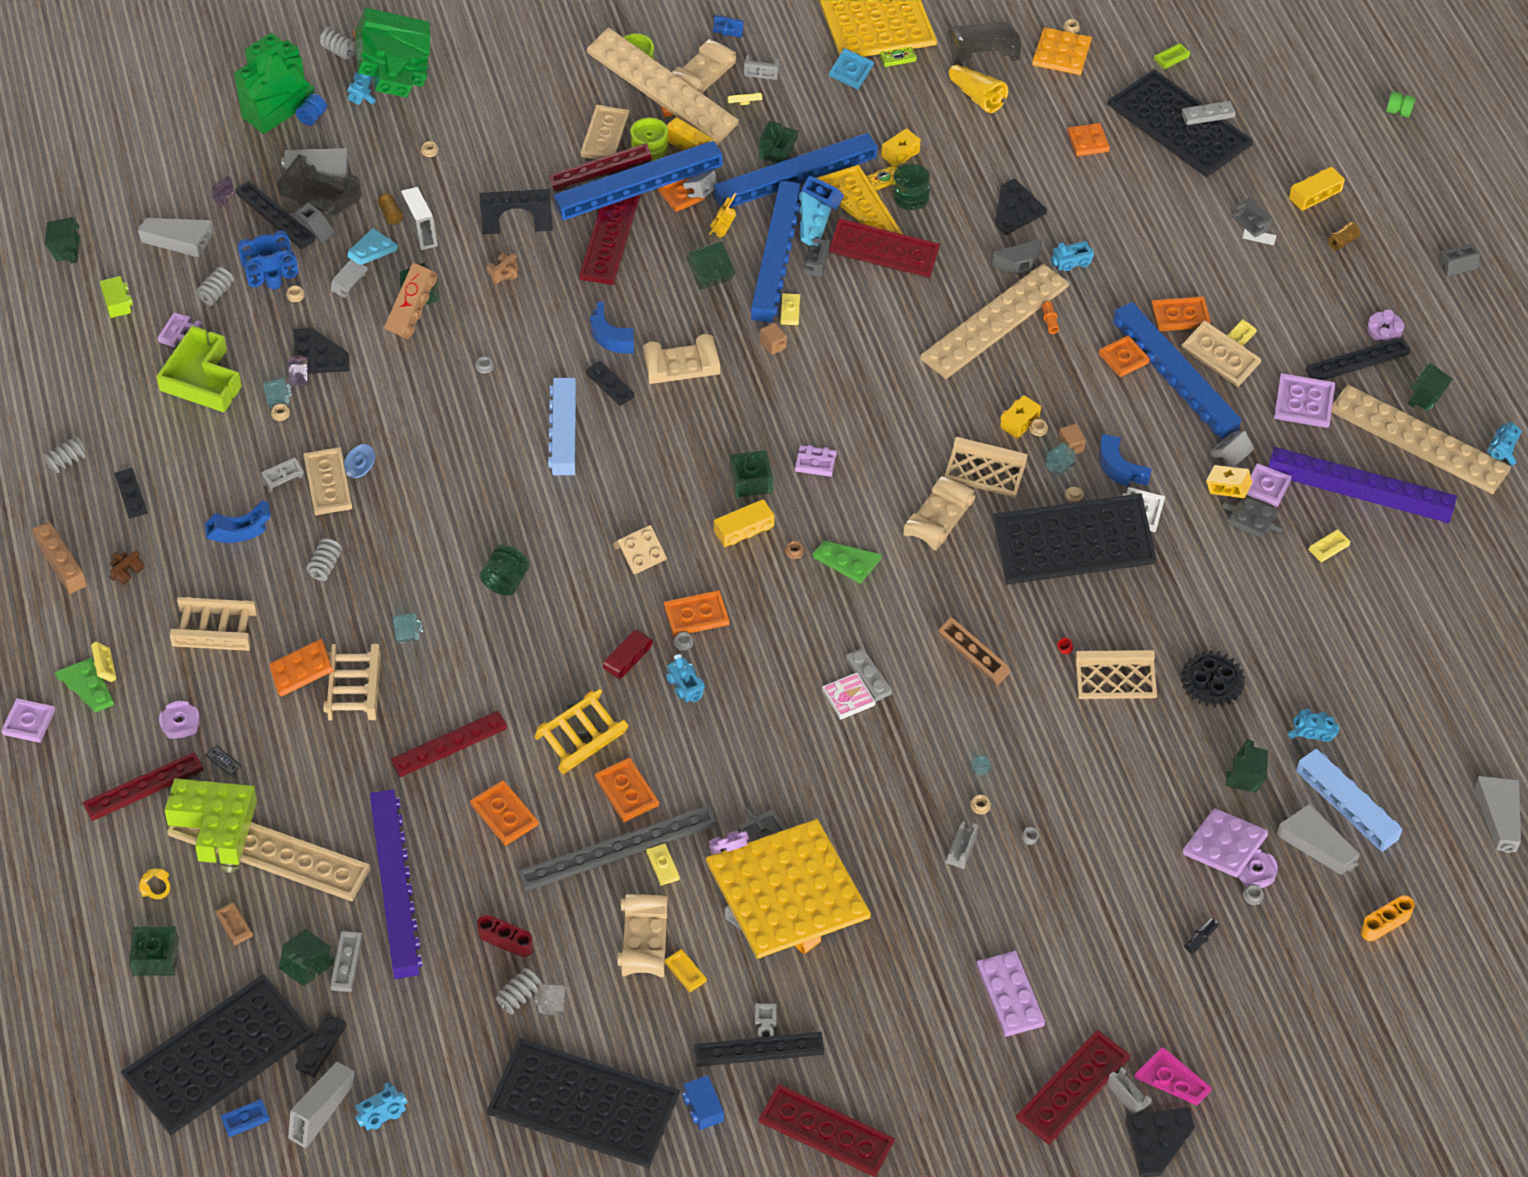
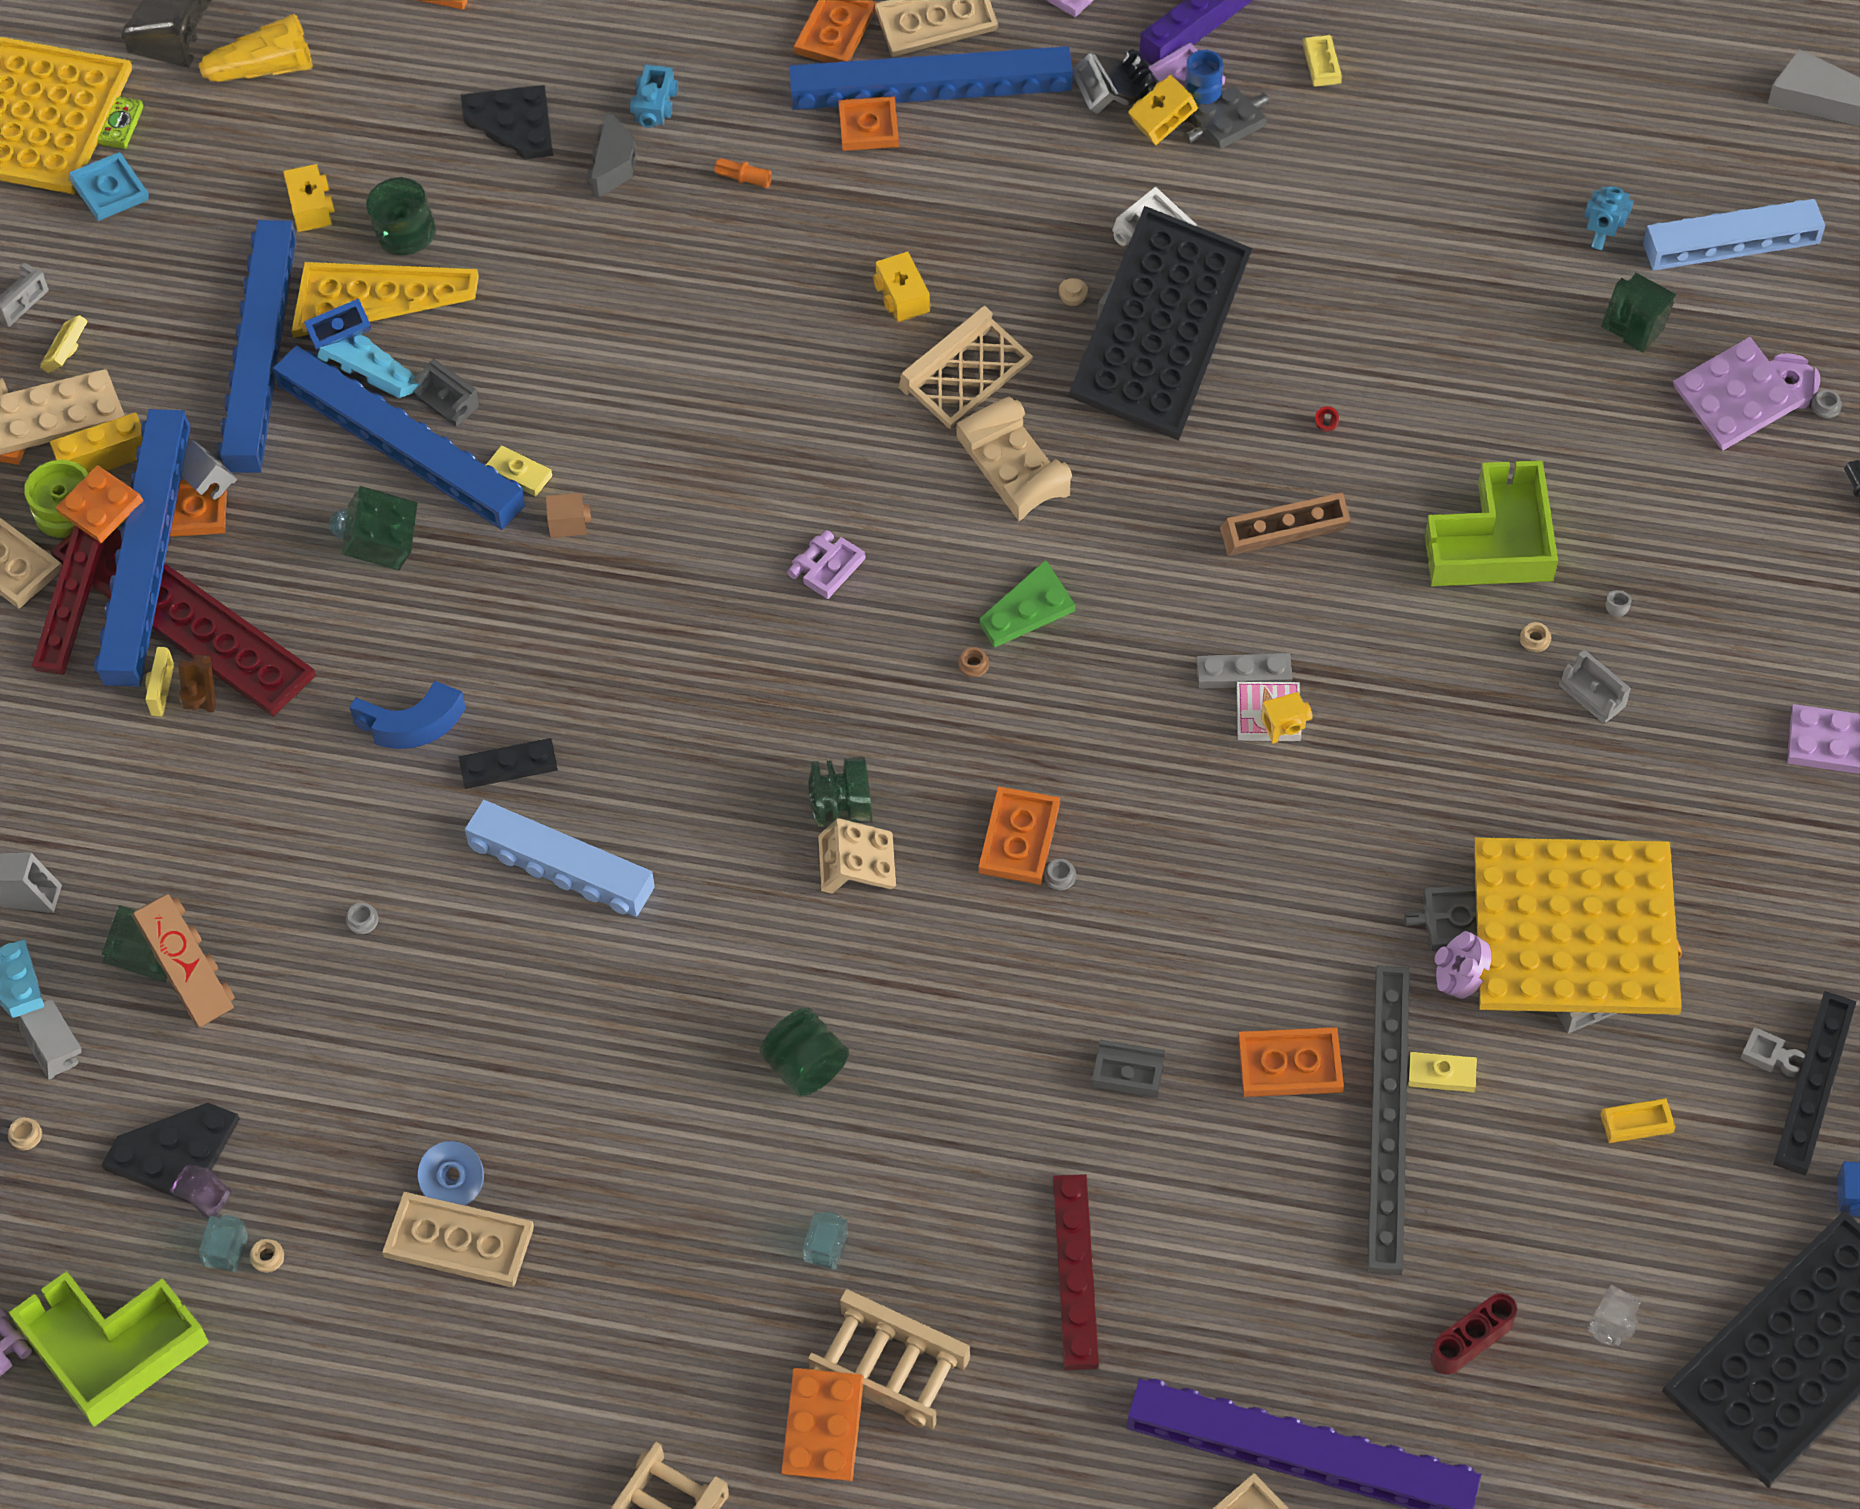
camera: 60 degrees left, 5 degrees up
(238, 529) = (479, 1406): blue arch -> none
(281, 474) = (409, 1301): light grey hinge -> none
(324, 559) = (621, 1309): light grey piece -> none
(496, 203) = (103, 703): black arch -> none
(504, 812) = (1248, 1244): orange plate -> none
(506, 268) = (175, 798): medium nougat hips -> none
(517, 990) = (1580, 1354): light grey piece -> none
(570, 226) = (159, 681): none -> light yellow plate
(571, 238) = (197, 683): none -> reddish brown hips
(583, 750) = (1186, 1058): yellow fence -> none
(627, 654) = (1046, 956): dark red beam -> none
(644, 934) = (1557, 1147): tan piece -> none
(646, 148) = (99, 504): none -> orange plate
(669, 521) = (840, 791): none -> clear green wheel
(681, 362) = (529, 649): tan piece -> none
(685, 679) = (1137, 901): dark azure brick -> none
(724, 218) = (288, 471): yellow hinge -> none
(744, 523) = (892, 702): yellow brick -> none
(751, 473) = (810, 651): clear green brick -> none
(777, 142) = (192, 340): clear green plate -> none
(842, 699) = (1285, 715): none -> yellow brick
(882, 178) = (346, 242): yellow tile -> none
(884, 248) = (490, 301): dark red plate -> none
(981, 761) = (1474, 600): clear light blue plate -> none
(994, 321) = (705, 240): tan plate -> none
(1037, 763) = (1503, 543): none -> lime piece
(1038, 427) = (932, 276): tan plate -> none
(1060, 459) = (1005, 276): clear light blue brick -> none
(1072, 438) = (981, 248): medium nougat brick -> none
(1111, 660) = (1379, 381): tan fence -> none
(1116, 467) = (1050, 221): blue arch -> none
(1197, 670) = (1469, 284): black gear -> none
(1240, 453) = (1127, 77): none -> black hinge
(1262, 487) = (1204, 76): none -> blue wheel
(1318, 839) = (1780, 293): light grey slope -> none

